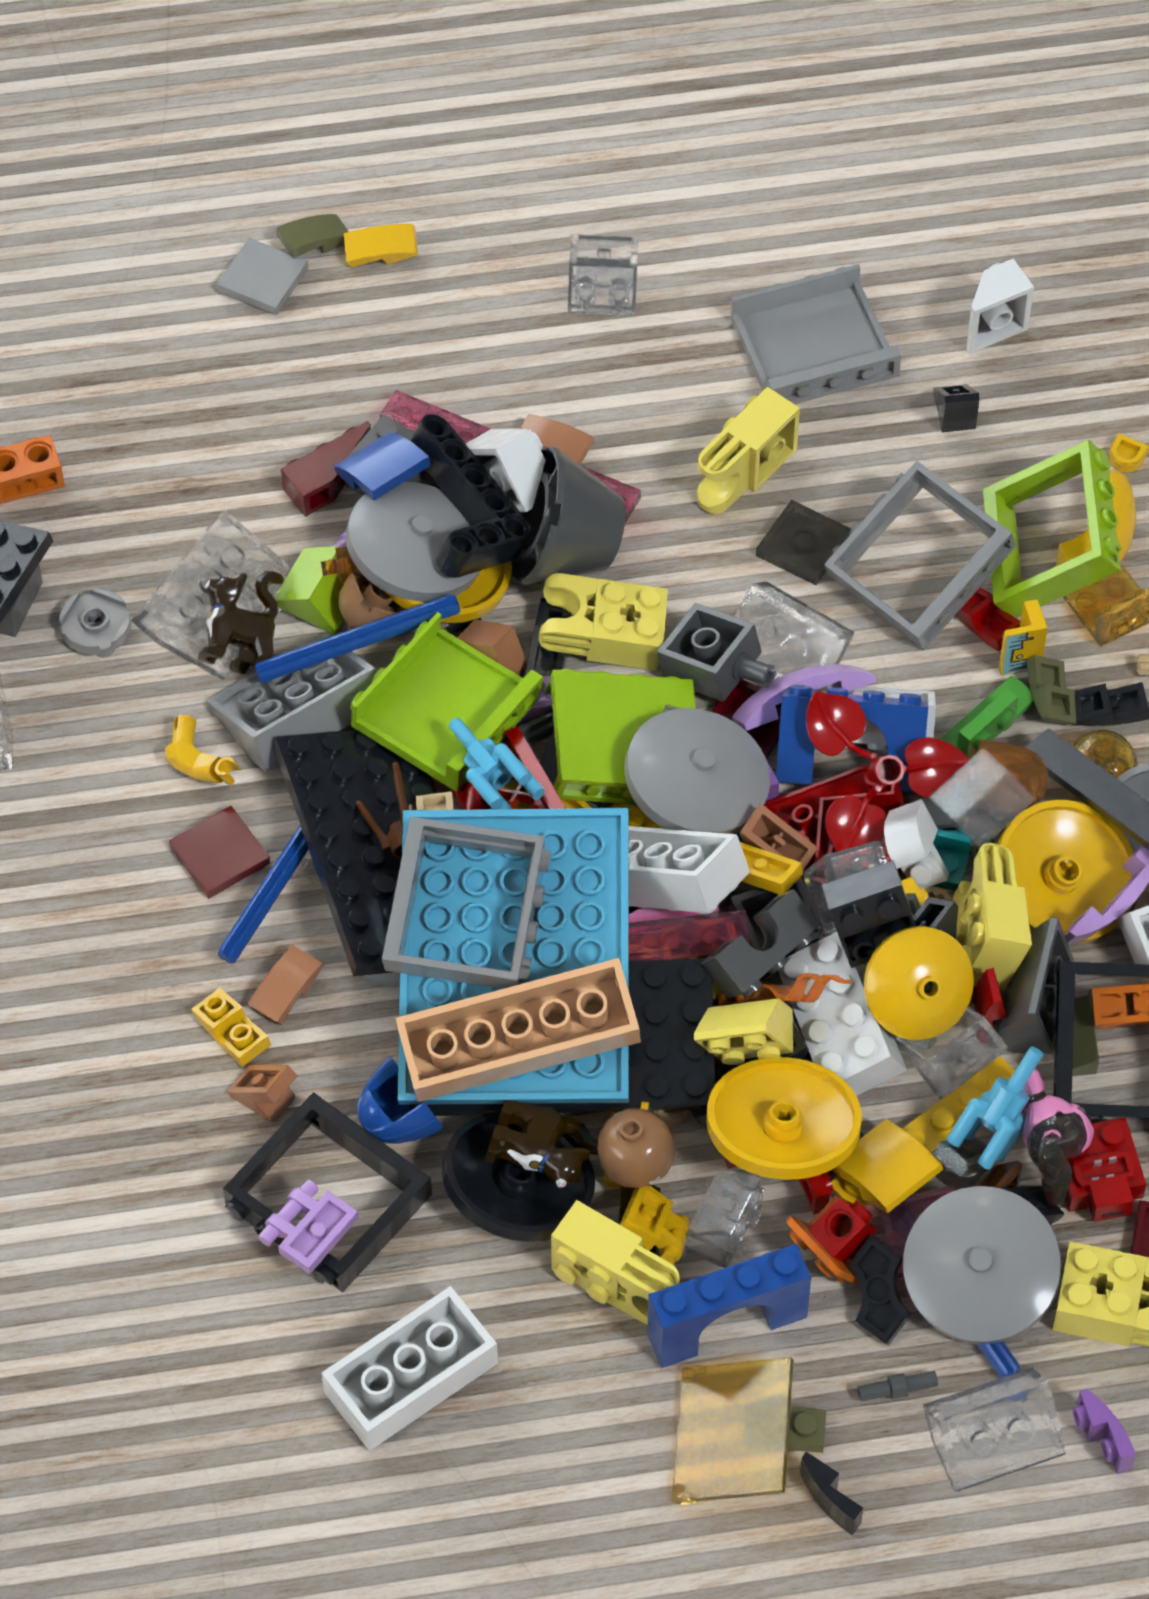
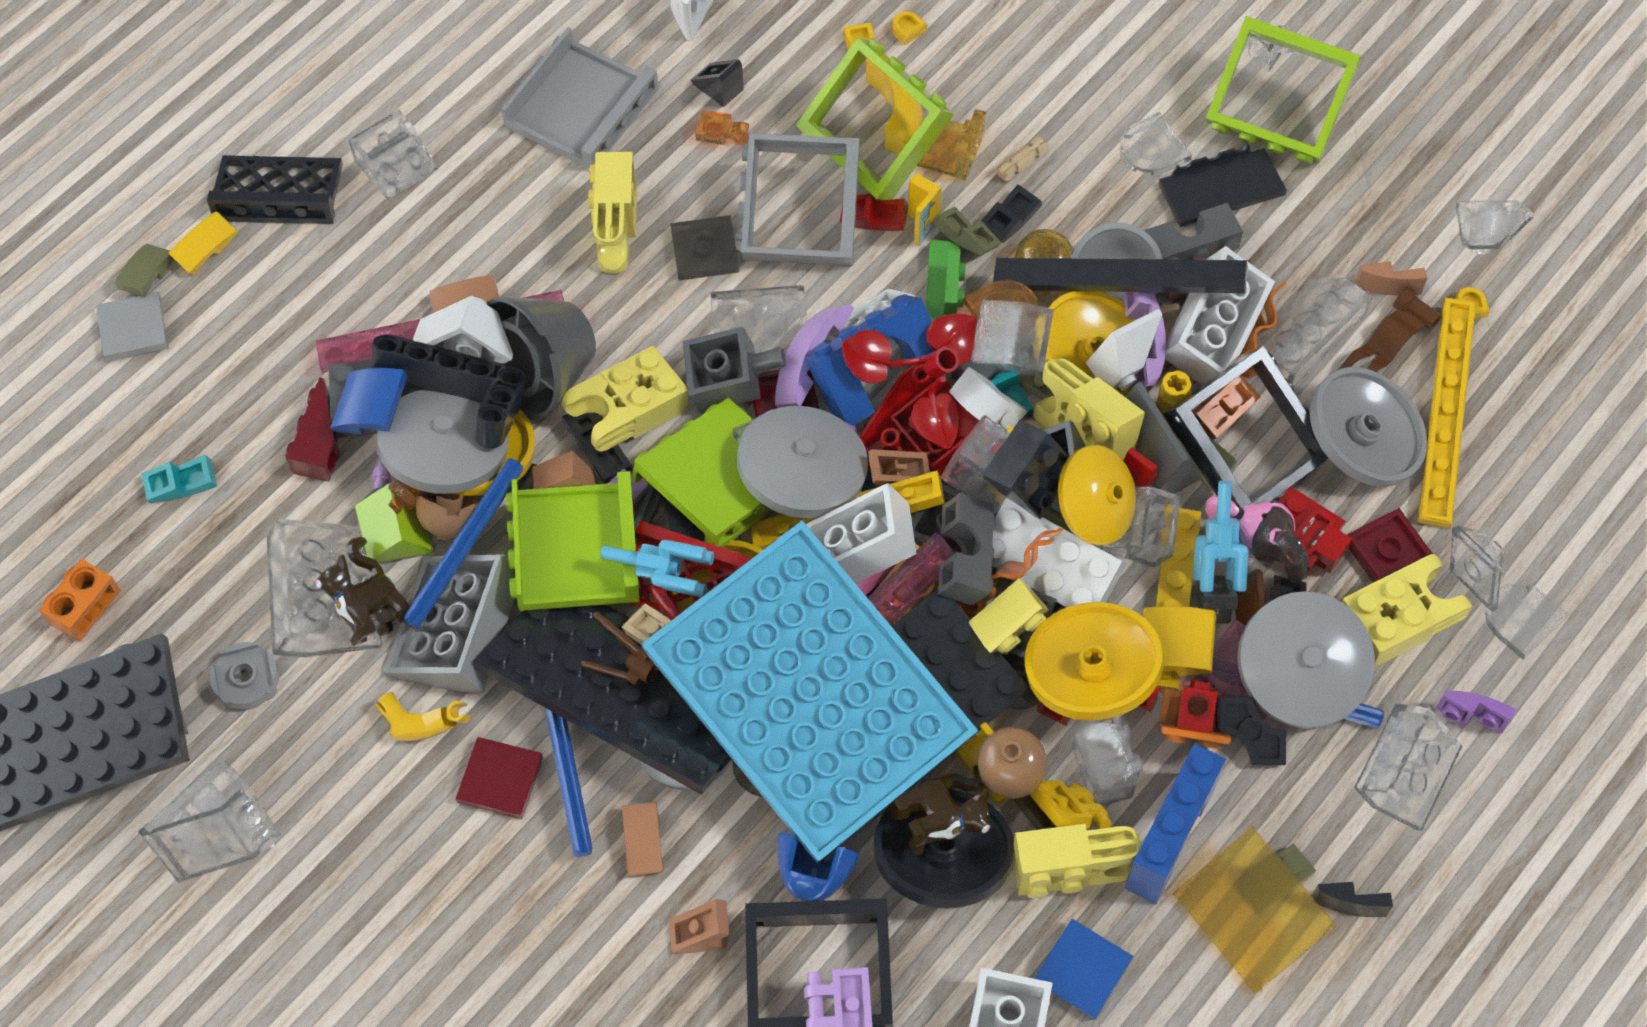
camera: 40 degrees left, 5 degrees up
(182, 428) = (176, 482): none -> teal slope
(230, 1027) = (631, 903): yellow slope -> none
(469, 253) = (274, 204): none -> black fence
(474, 837) = (795, 638): light grey window -> none
(518, 1029) = (870, 742): light nougat brick -> none
(545, 1364) = (1084, 968): none -> blue slope
(897, 1386) = (1319, 788): dark grey bar -> none
(915, 444) = (718, 126): none -> clear orange plate
(1076, 884) = (1125, 352): none -> white slope
(1095, 949) = (1173, 389): none -> yellow axle

